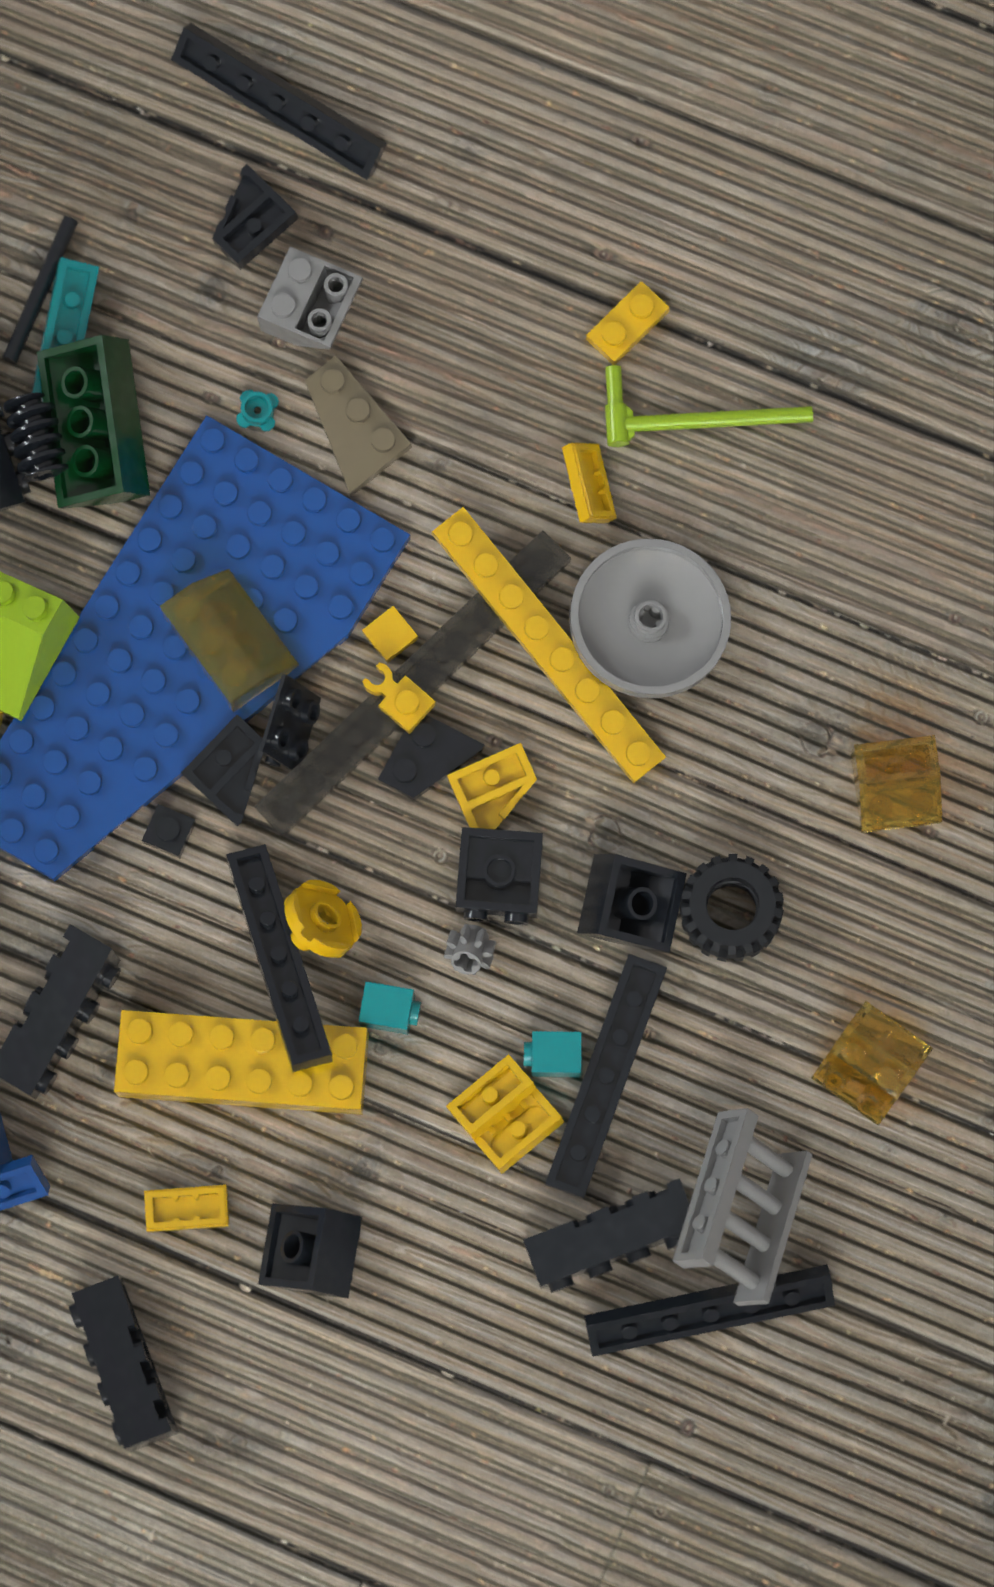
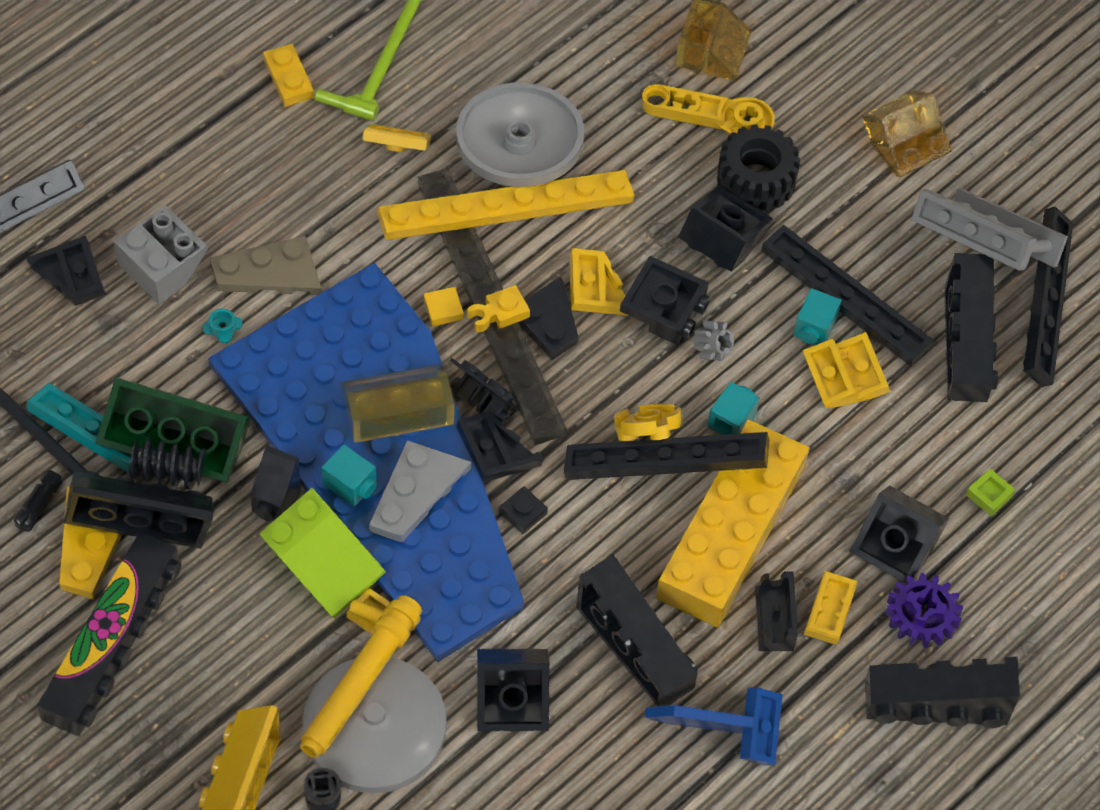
camera: 75 degrees left, 20 degrees down
(68, 561) = (275, 484): none -> black slope
(108, 632) = (349, 476): none -> teal brick
(129, 705) = (414, 488): none -> light grey wing
(153, 1152) = (776, 613): none -> black hinge
(223, 1330) = (941, 614): none -> dark purple gear
(410, 1333) = (990, 492): none -> lime plate
(800, 830) = (707, 109): none -> yellow beam

